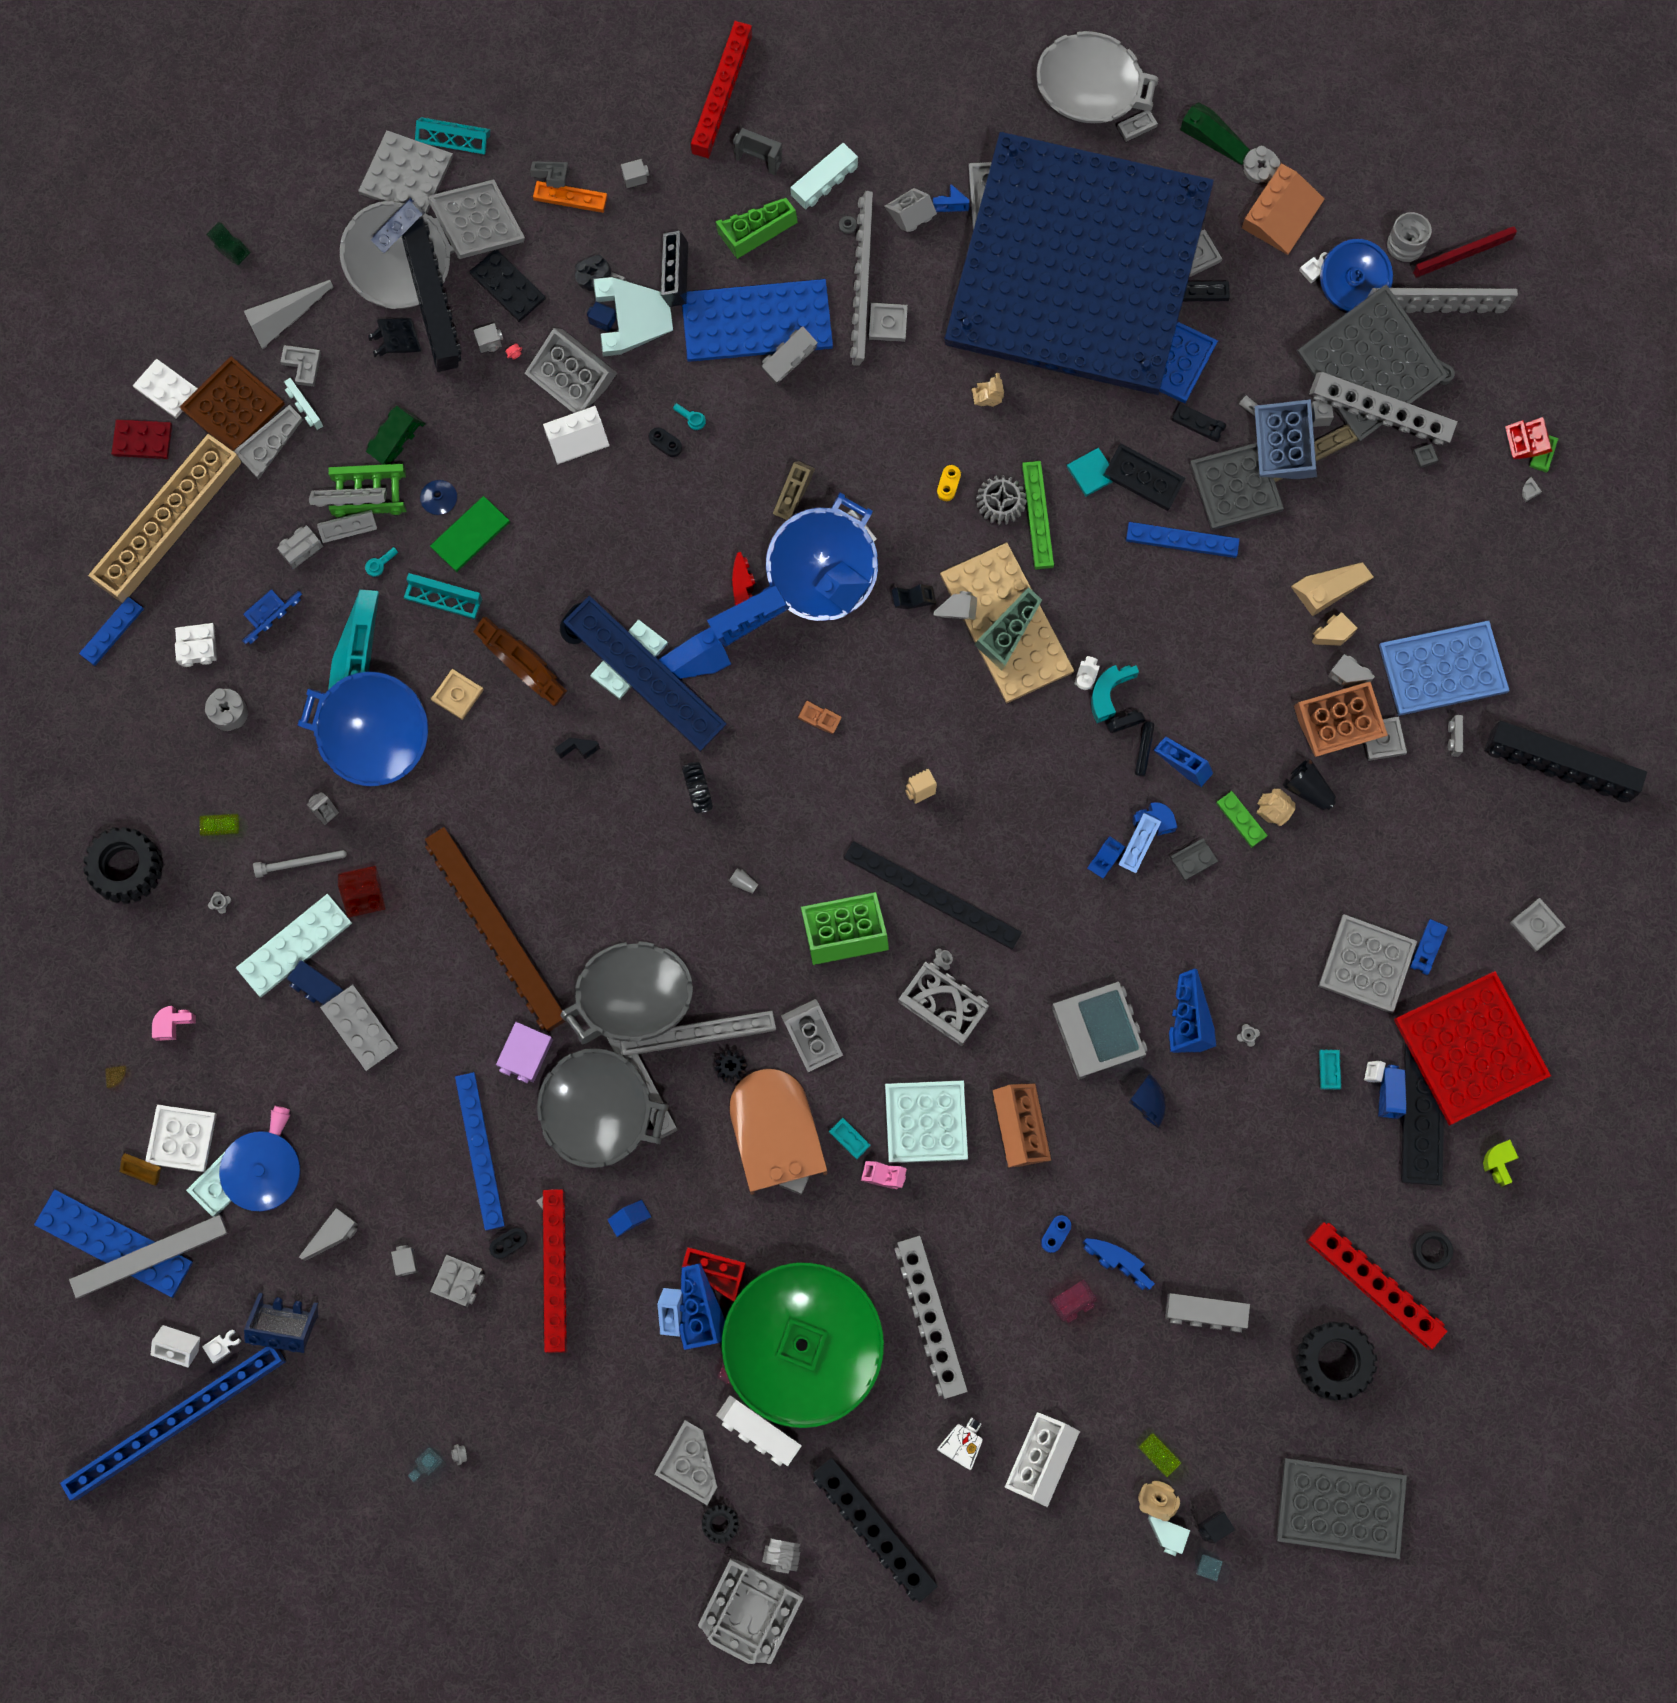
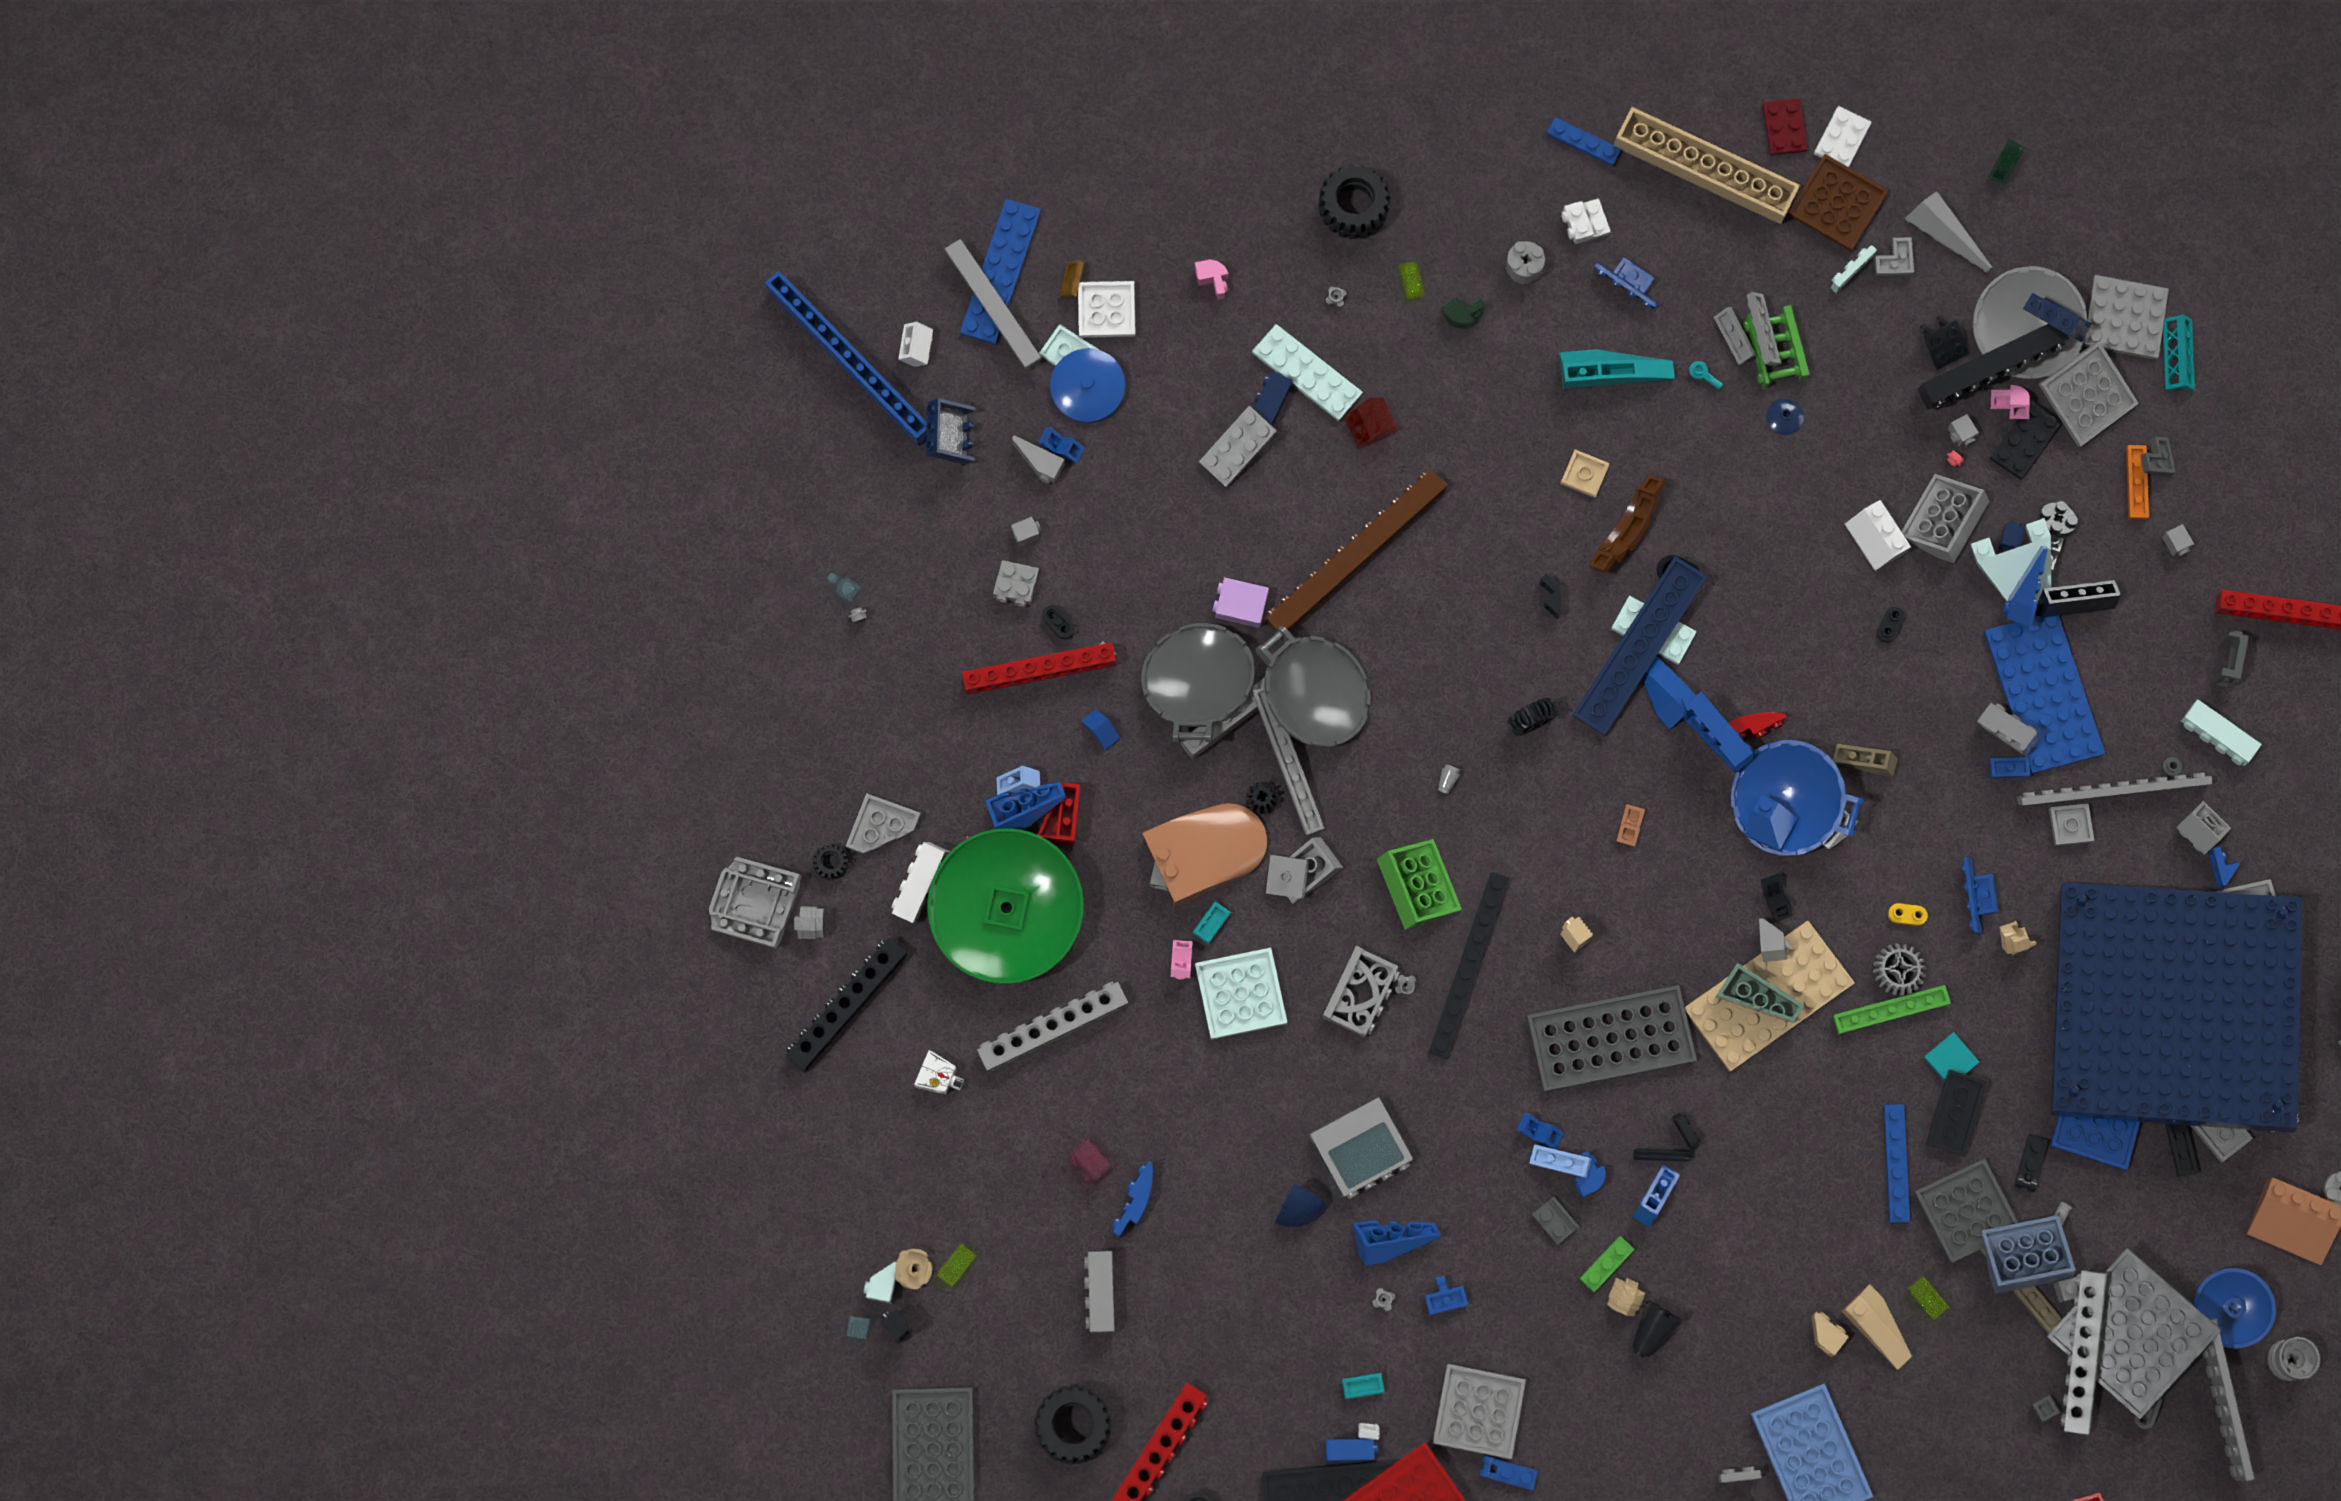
camera: 80 degrees right, 0 degrees up
(114, 1076) = (1154, 238): clear yellow tile -> none
(219, 1347) = (921, 383): white plate -> none
(261, 869) = (1374, 326): light grey piece -> none
(266, 443) = (1806, 243): light grey wing -> none
(268, 784) = (1462, 317): none -> clear green brick
(279, 1118) = (1139, 392): bright pink cone -> none
(299, 546) = (1704, 295): light grey brick -> none
(319, 1209) = (1062, 446): none -> blue slope
(322, 807) = (1444, 369): light grey slope -> none
(368, 728) = (1531, 395): blue dish -> none
(393, 435) = (1839, 359): dark green wedge -> none
(447, 590) = (1688, 441): teal fence -> none
(467, 285) = (2014, 399): none -> bright pink brick
(469, 534) = (1752, 453): green tile -> none
(480, 1151) = (1140, 580): blue plate -> none
(666, 317) = (2022, 600): none -> blue wedge
(695, 419) = (1920, 650): teal plate -> none
(756, 227) = (2146, 673): bright green wedge -> none
(816, 1055) = (1287, 876): none -> light grey plate
(824, 364) = (2009, 767): none -> blue plate
(941, 413) = (1981, 895): none -> blue bracket
(1021, 1125) = (1253, 1086): nougat slope -> none
(1042, 1459) = (935, 1153): white slope -> none
(1054, 764) = (1609, 1069): none -> dark grey piece
(1055, 1233) = (1152, 1136): blue plate -> none
(1087, 673) = (1727, 1082): white hips -> none
(1100, 701) = (1716, 1102): teal arch -> none
(1255, 974) = (1446, 1298): none -> blue plate
(1311, 536) = (1928, 1298): none -> clear neon green plate
(1312, 269) = (2234, 1259): white plate -> none
(1341, 719) = (1731, 1351): nougat slope -> none
(1349, 673) = (1784, 1355): light grey slope -> none
(1387, 746) = (1721, 1400): light grey plate -> none
(1464, 251) = (2292, 1424): dark red tile -> none

